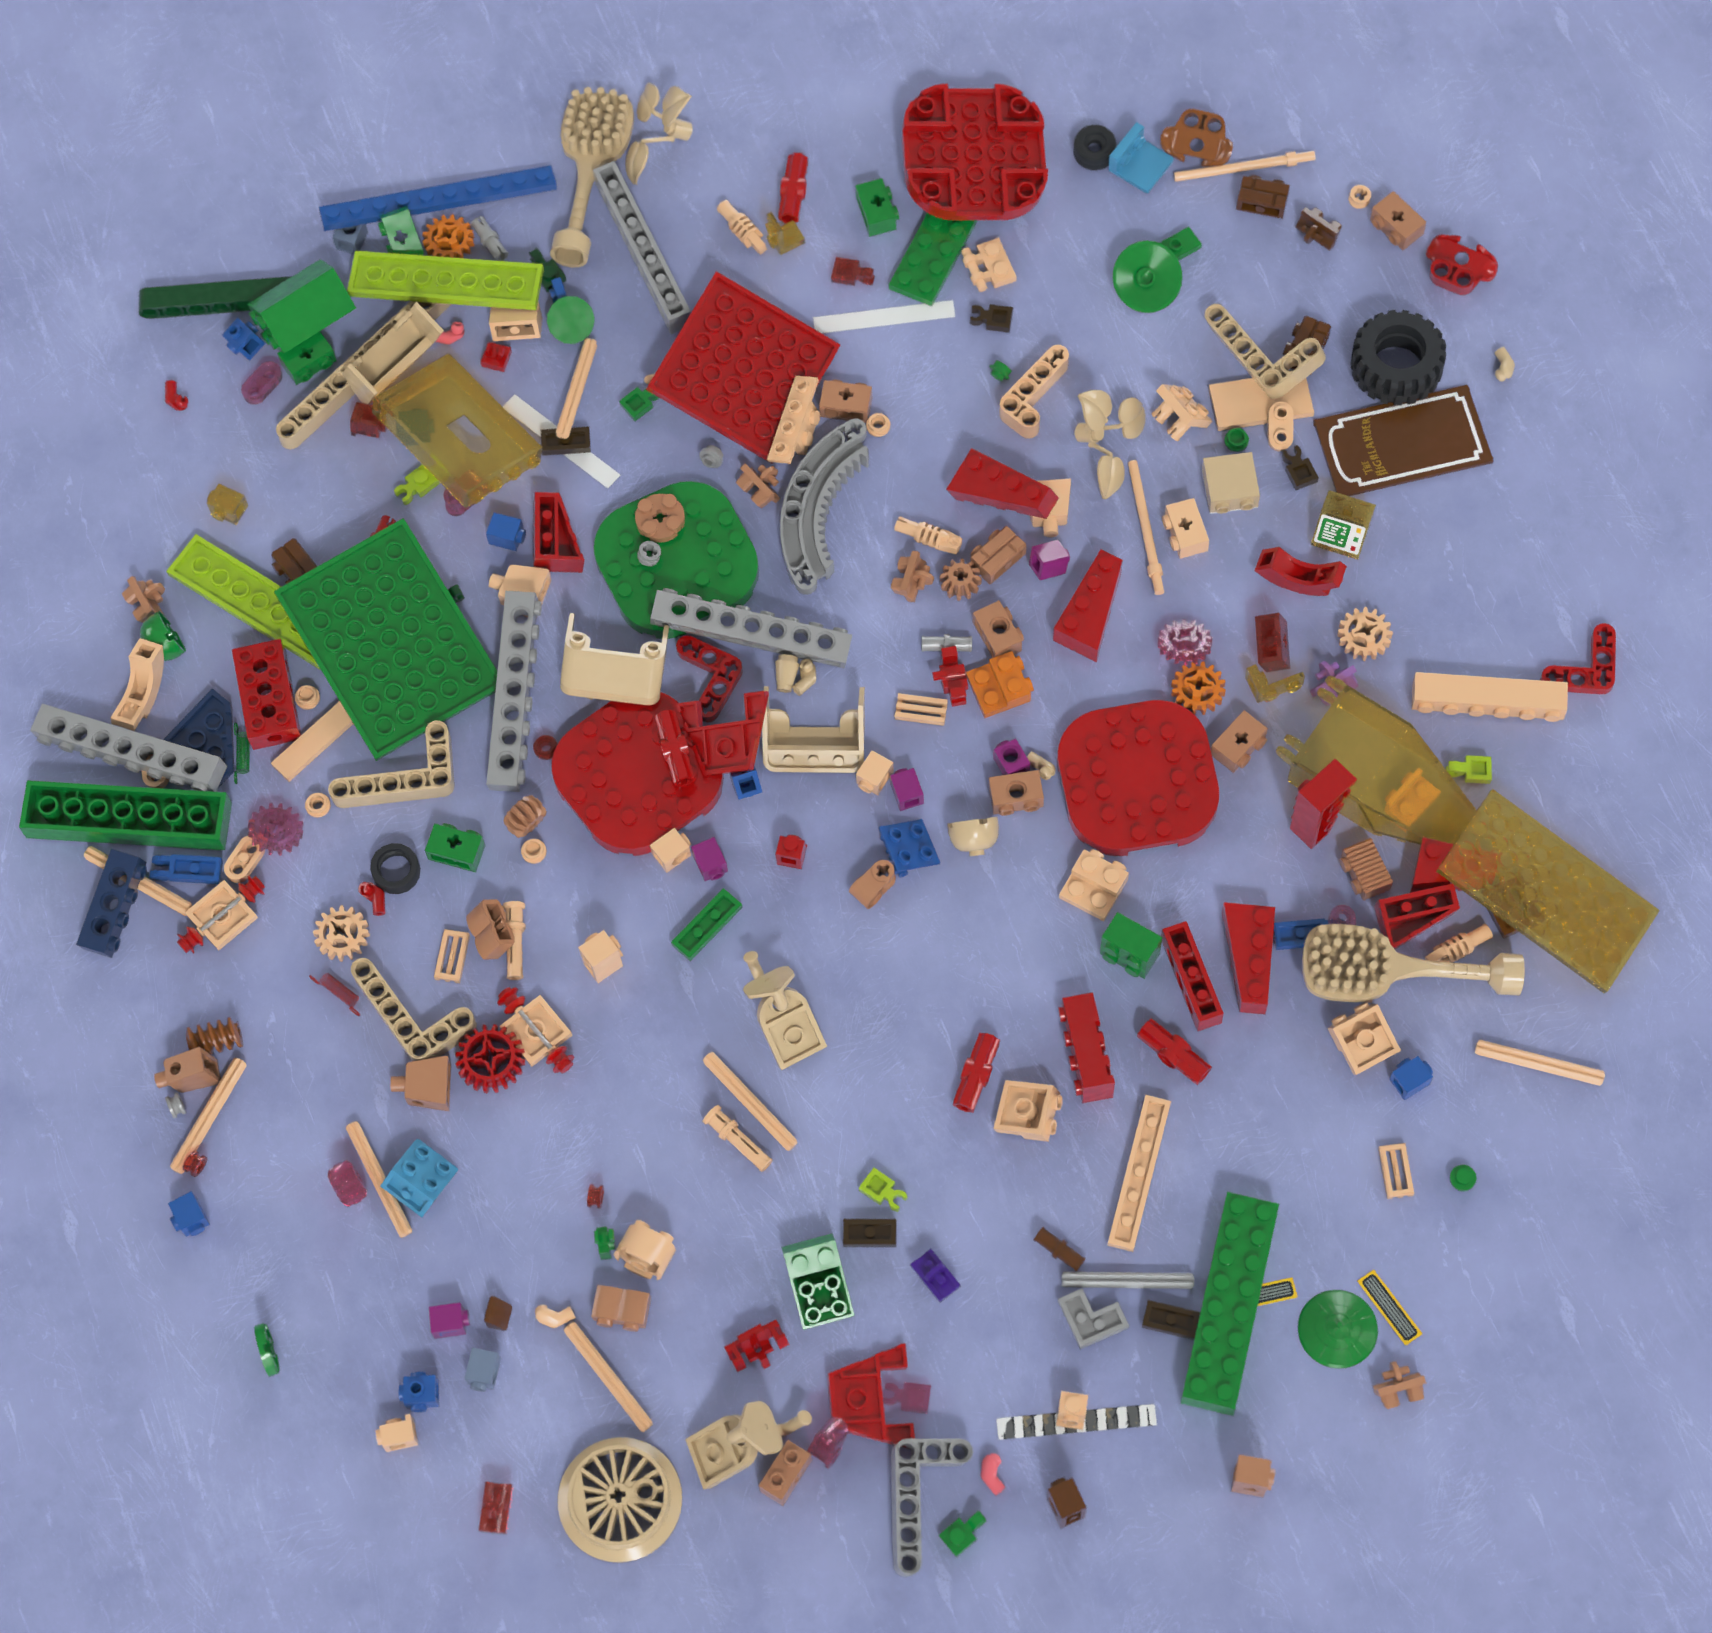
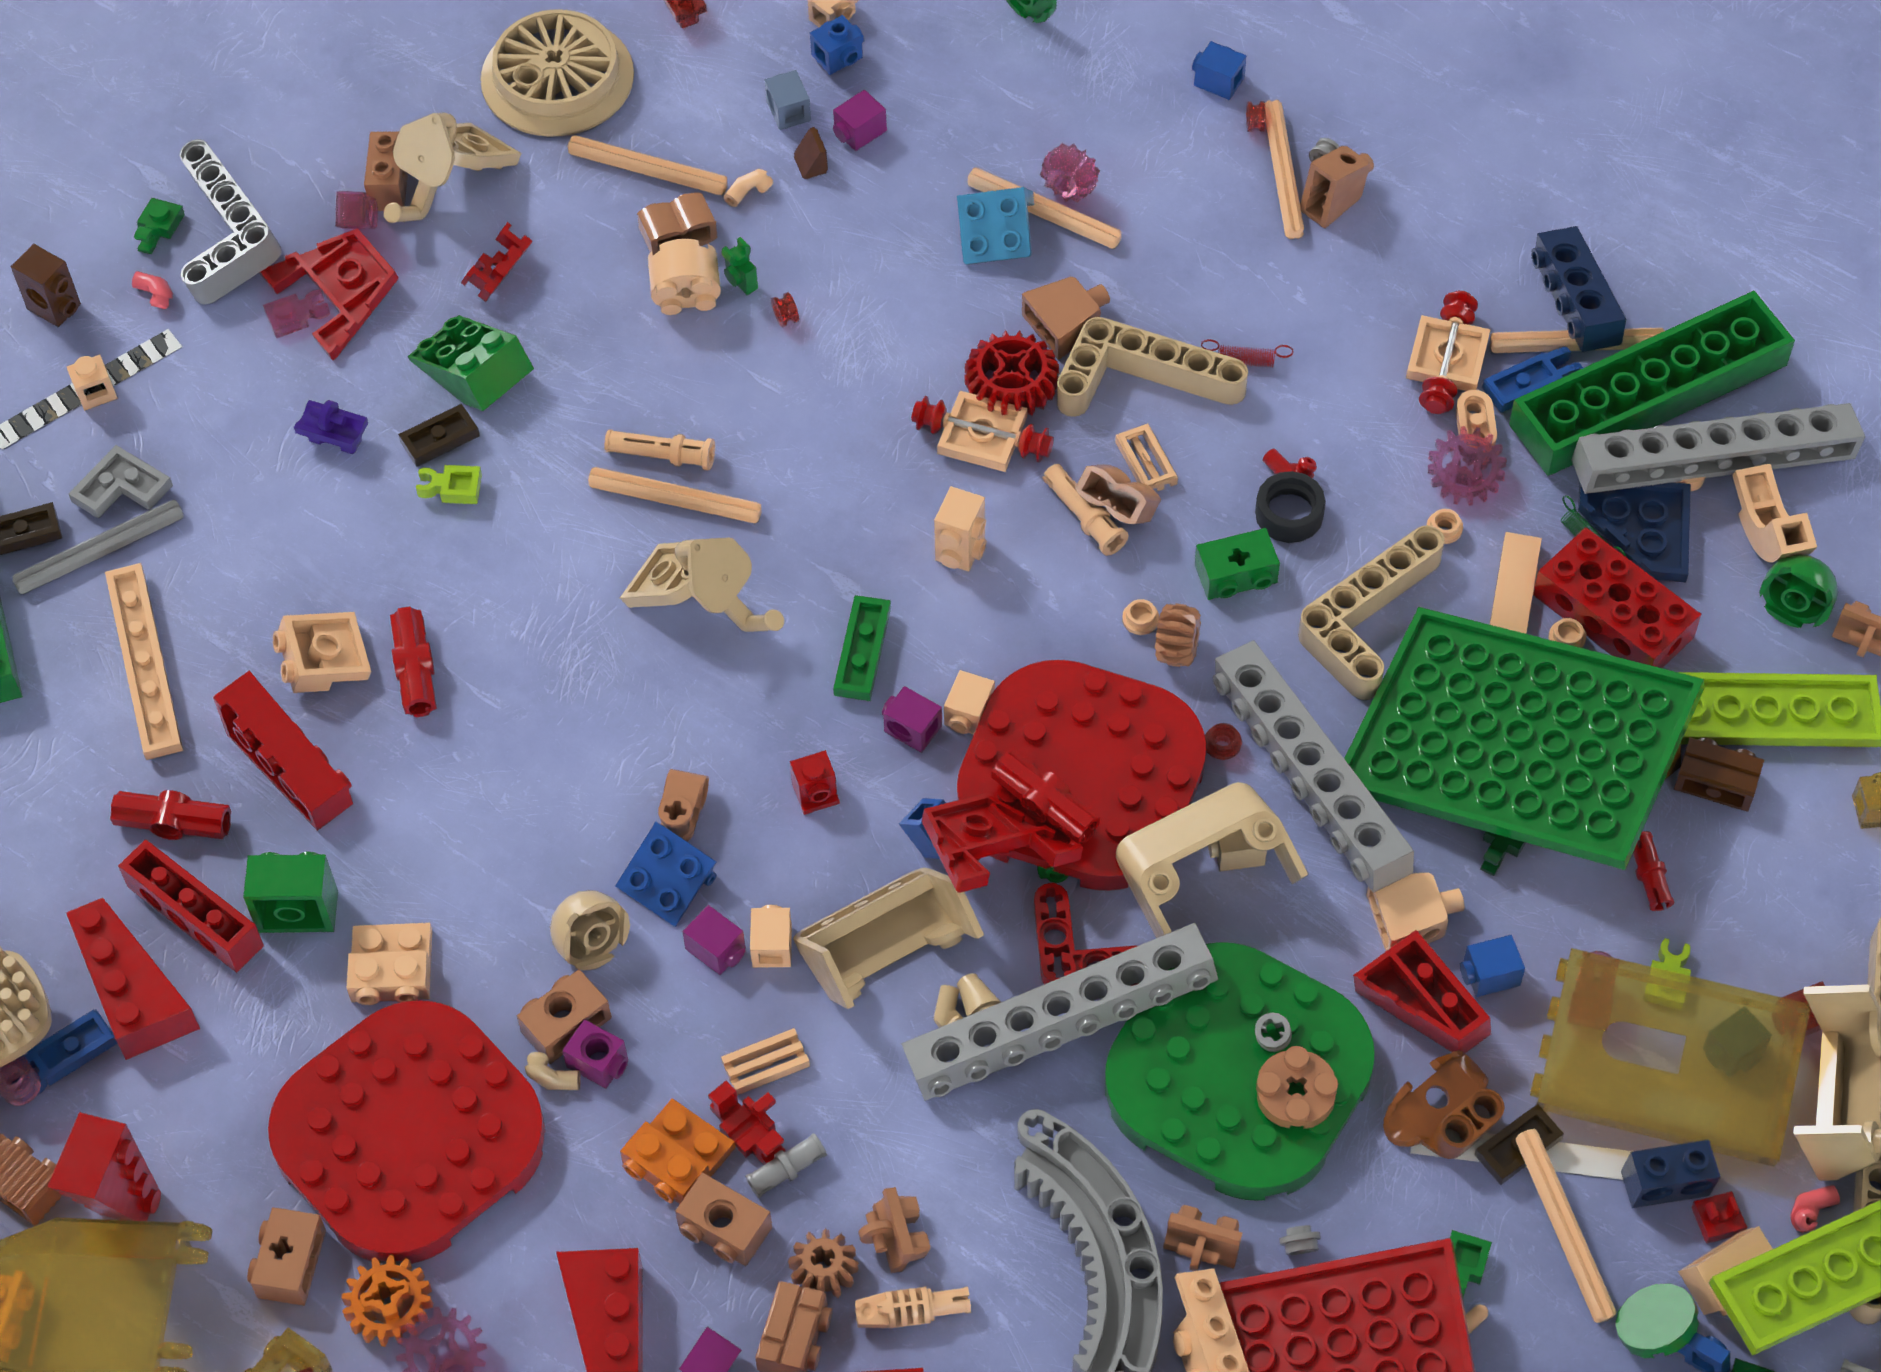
camera: 145 degrees right, 10 degrees down
(215, 1037) = (1341, 231): dark orange piece -> none
(335, 940) = (1292, 406): light nougat gear -> none
(505, 381) = (1670, 1173): none -> dark blue brick
(584, 466) = (1415, 1122): none -> dark orange piece
(1059, 1249) = (198, 533): reddish brown pin -> none

